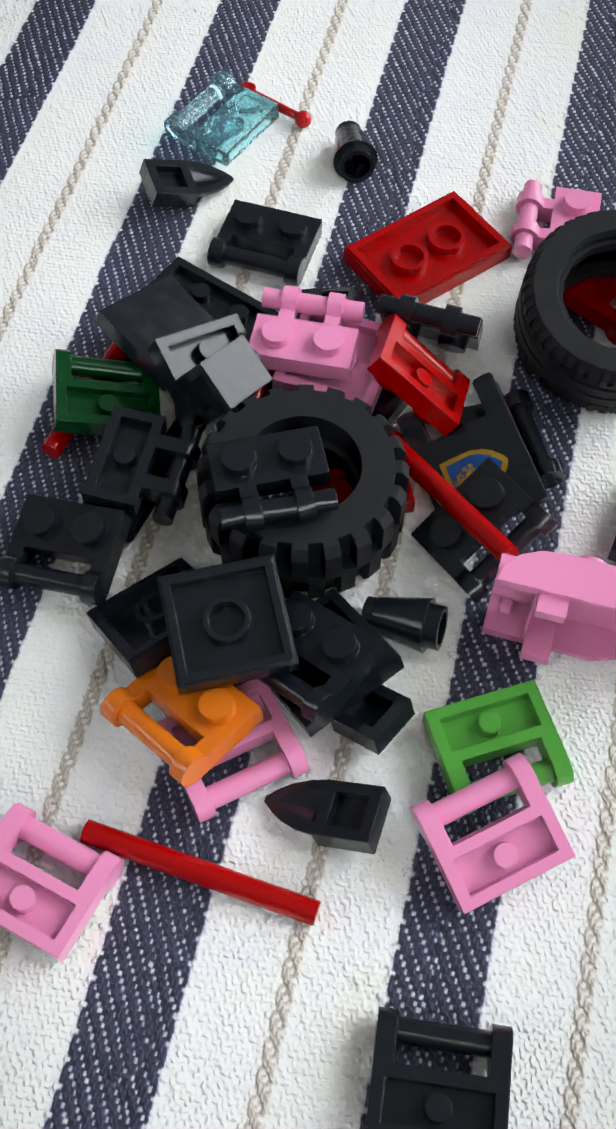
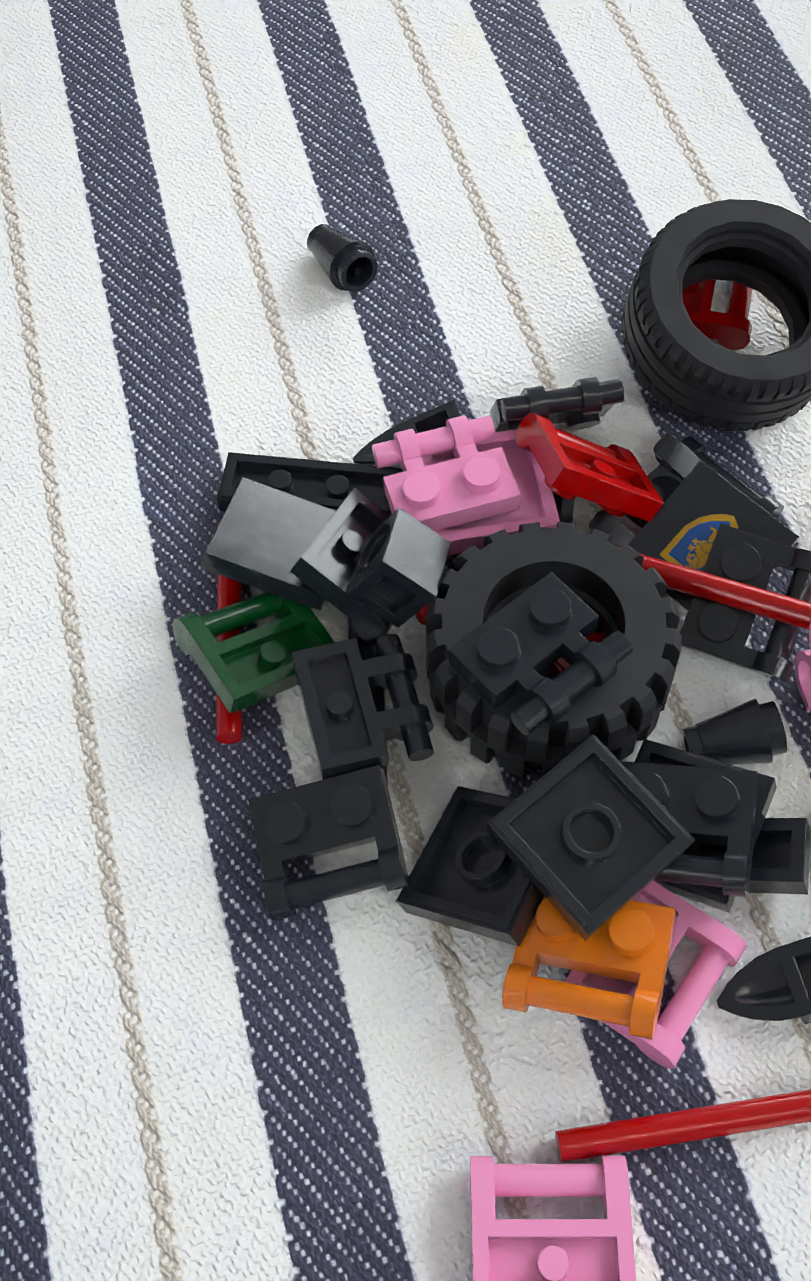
camera: 25 degrees left, 0 degrees up
(180, 181) = (175, 367): black plate -> none
(229, 128) = (187, 282): clear light blue plate -> none
(266, 241) = (311, 394): black plate -> none
(301, 118) = (177, 237): red hinge -> none
(428, 251) = (486, 334): red tile -> none
(533, 207) = (609, 240): bright pink plate -> none

